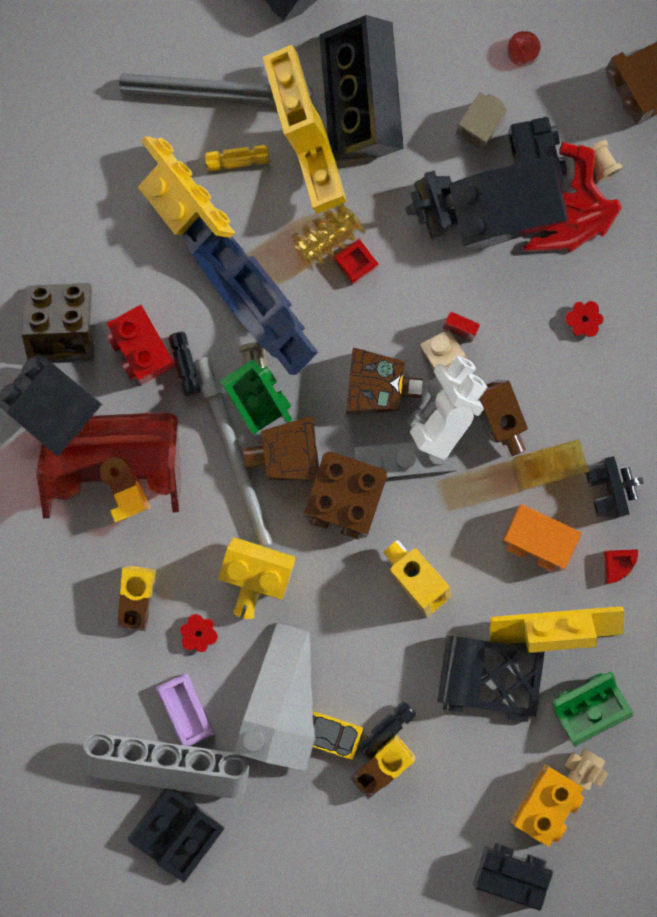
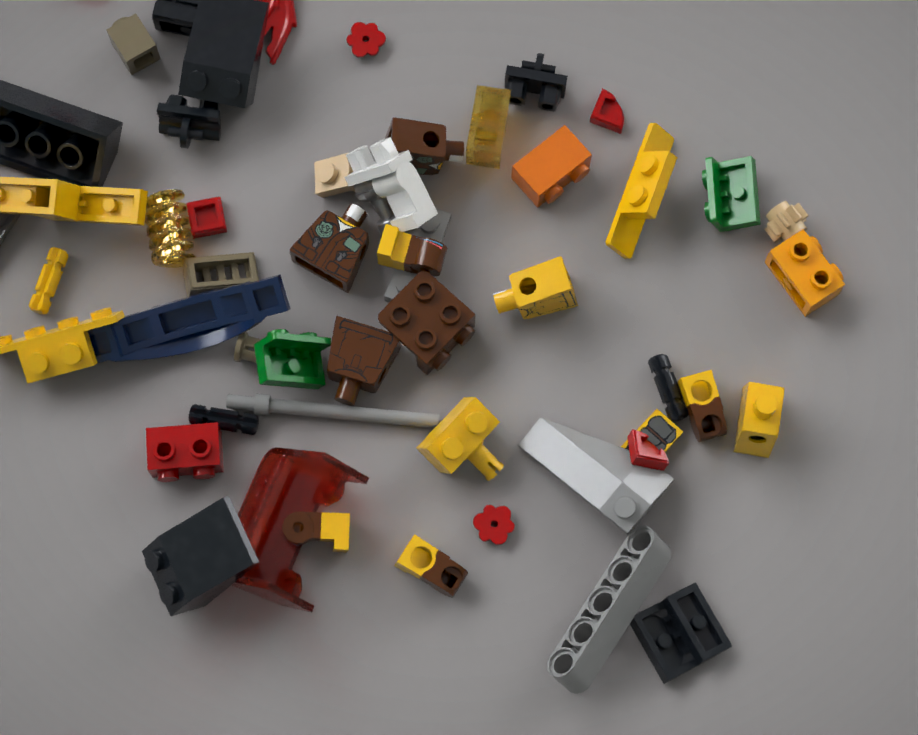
camera: 65 degrees left, 10 degrees down
(58, 321) = (120, 520): dark brown bracket -> none
(185, 710) = (563, 570): lavender tile -> none
(312, 281) = (218, 262): none -> dark tan slope
(315, 736) = (645, 453): none -> red tile
(393, 821) = (758, 416): none -> yellow torso
(399, 452) = (410, 252): none -> leg
(461, 326) = (317, 147): red tile -> none
(463, 677) = (647, 293): black piece -> none
(513, 877) = (859, 332): black brick -> none

